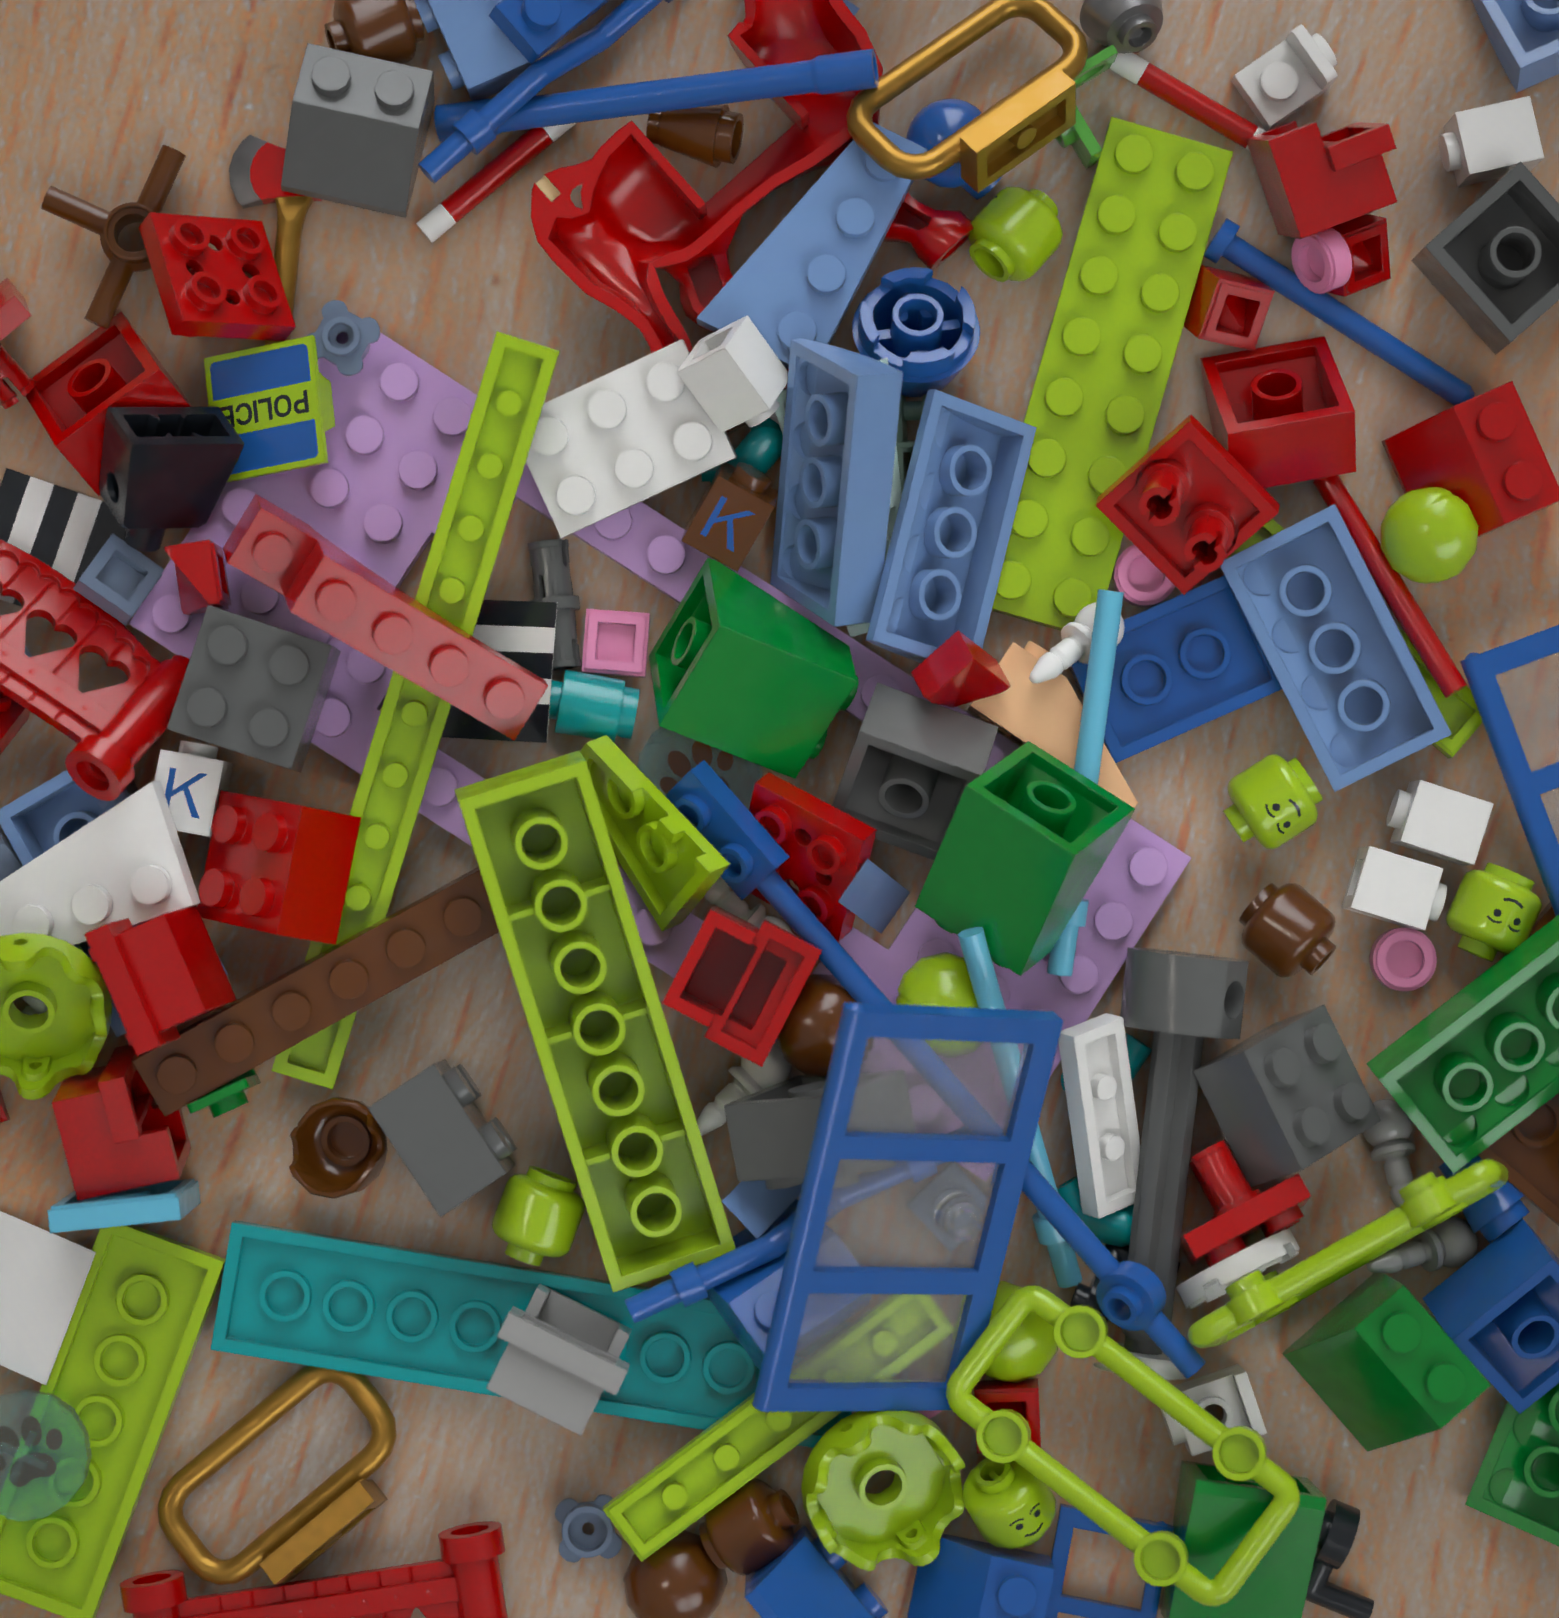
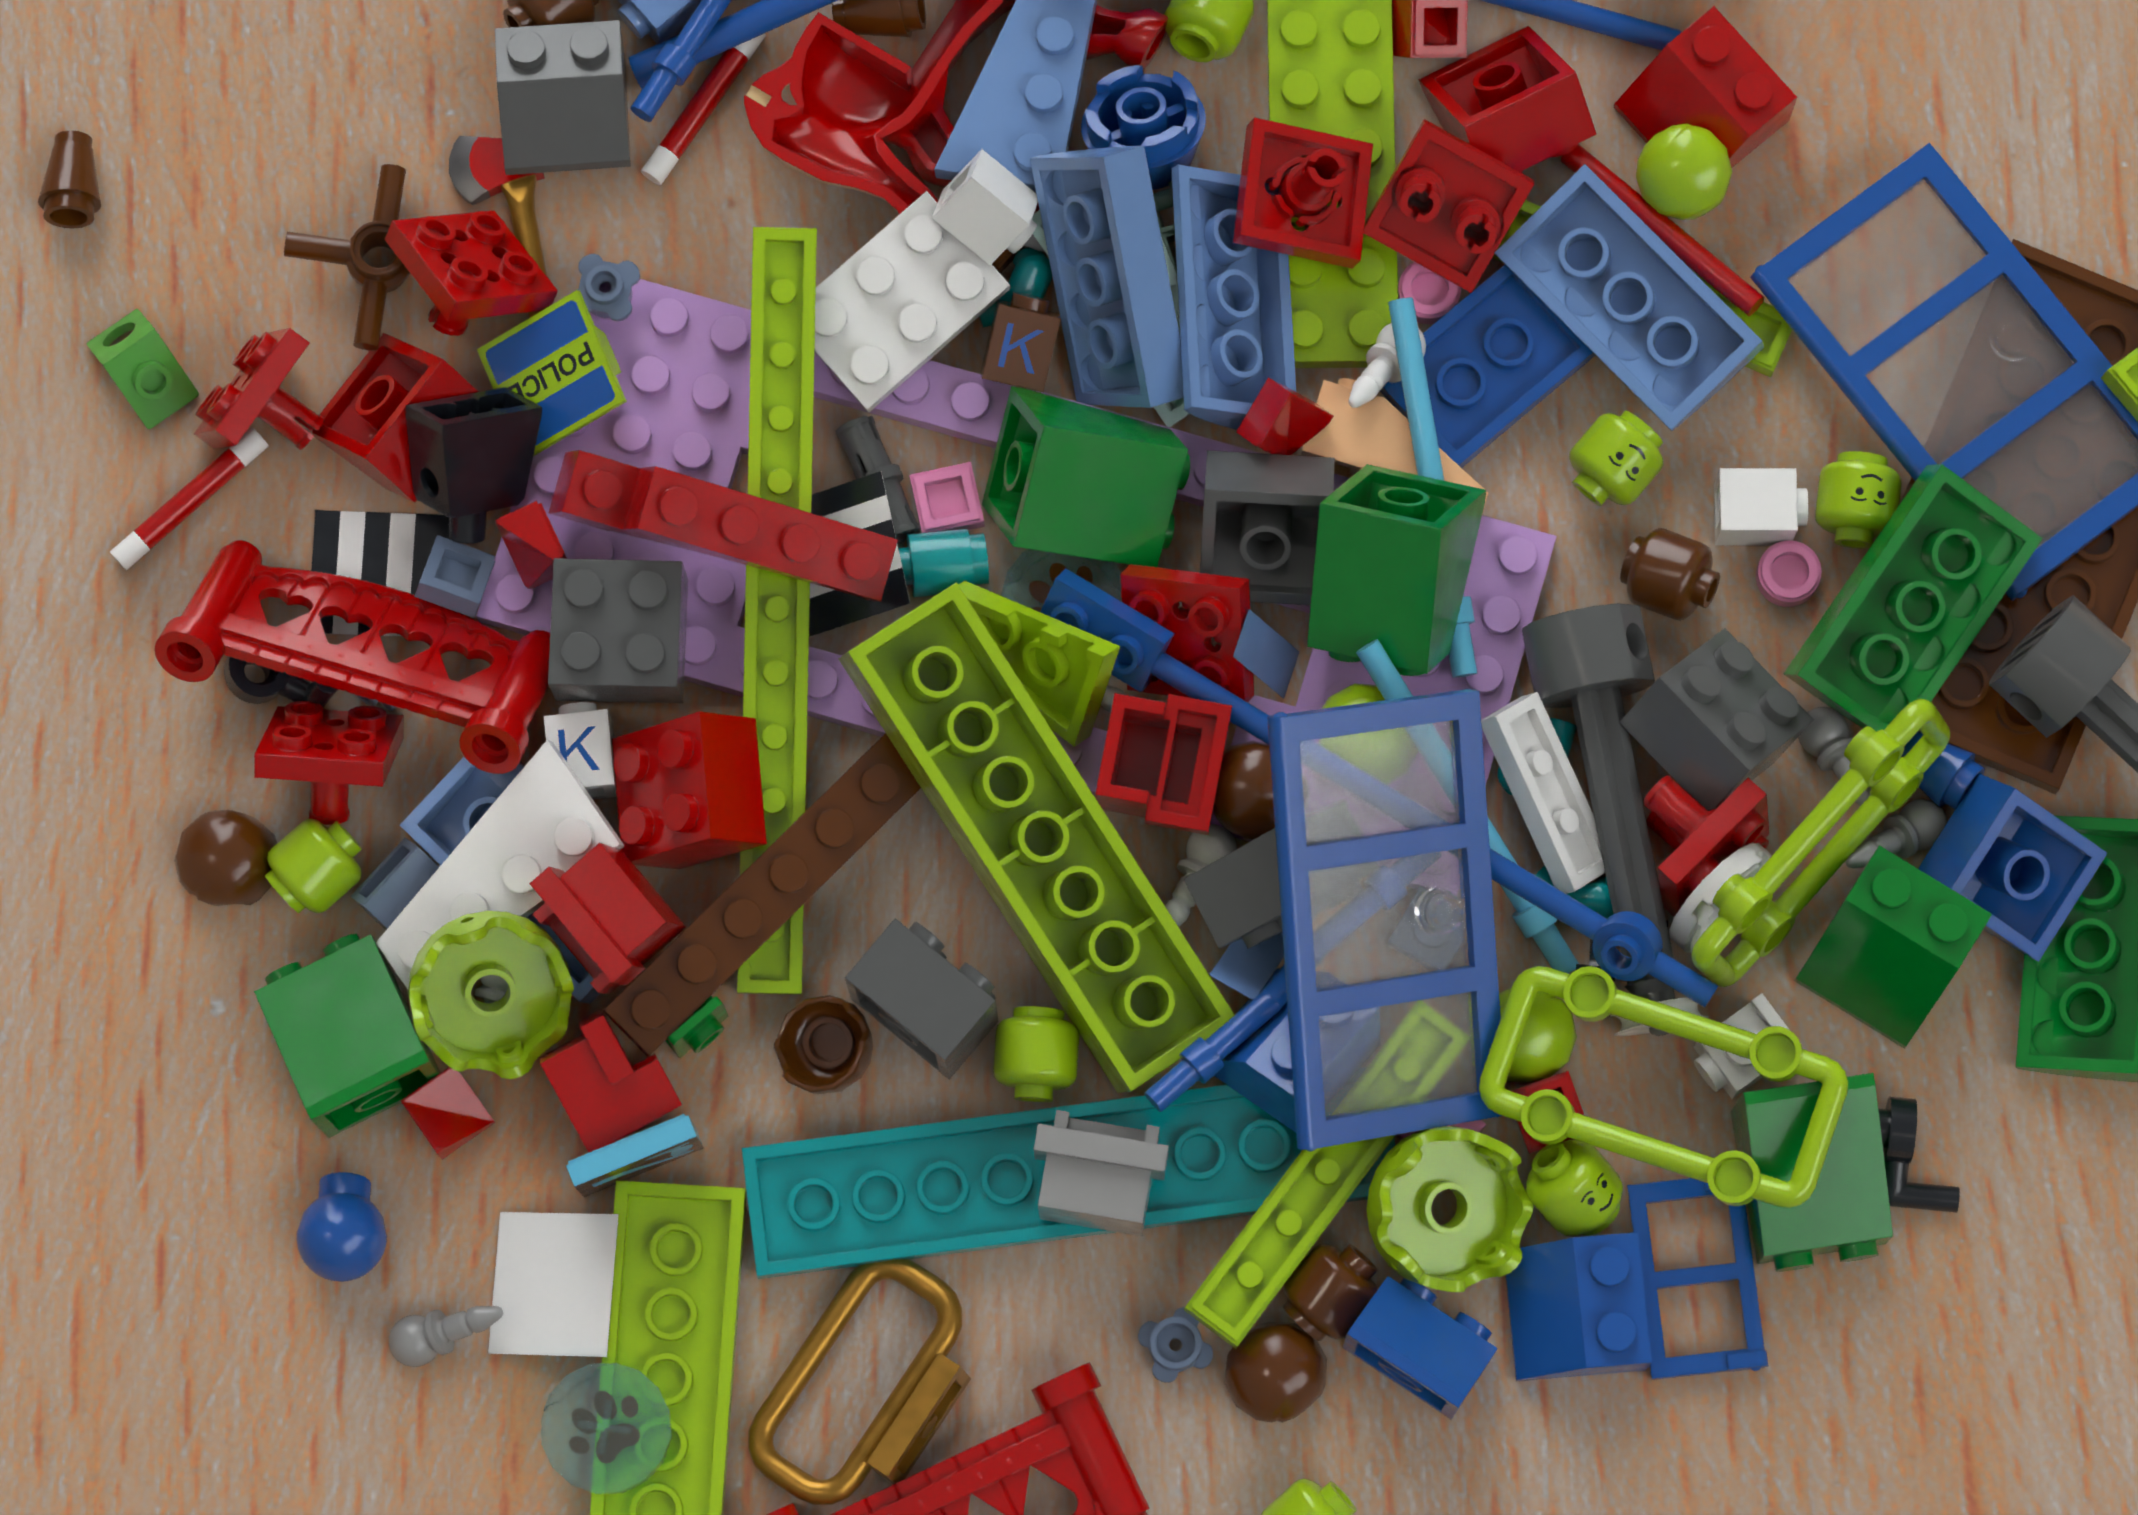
camera: 10 degrees left, 10 degrees down
(1052, 449) = (1309, 174): none -> red plate
(1439, 822) = (1780, 431): white brick -> none

